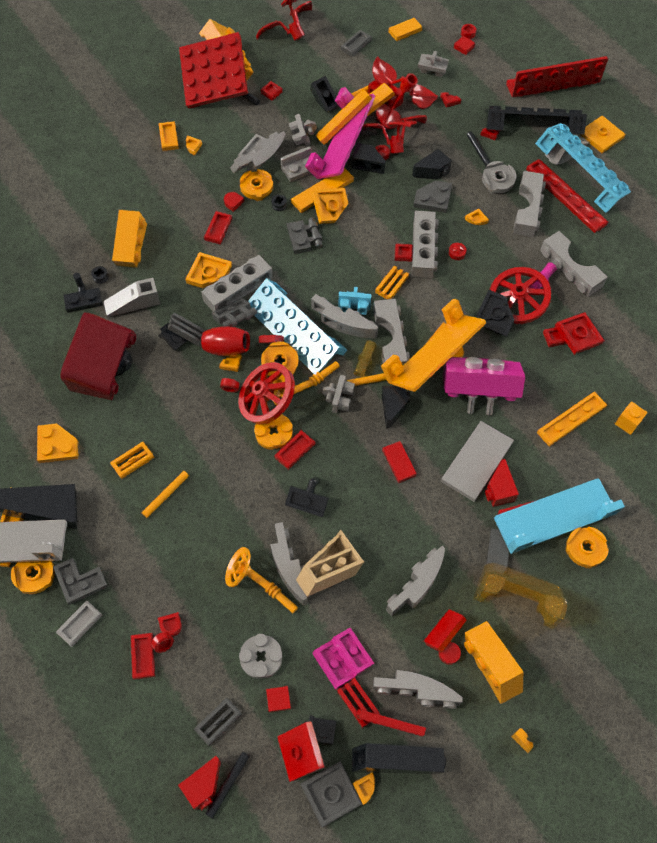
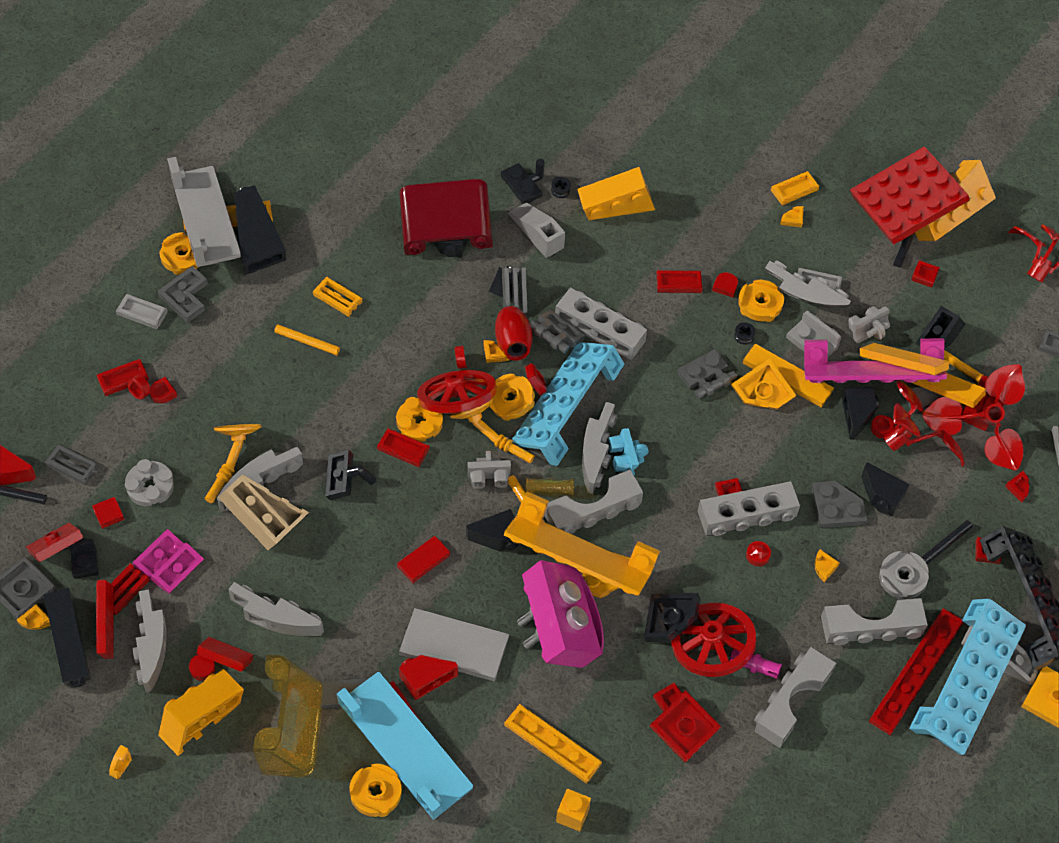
camera: 70 degrees right, 5 degrees down
(55, 444) = (333, 222): light orange plate -> none
(207, 270) = (609, 288): light orange plate -> none
(398, 273) = (677, 486): light orange tile -> none

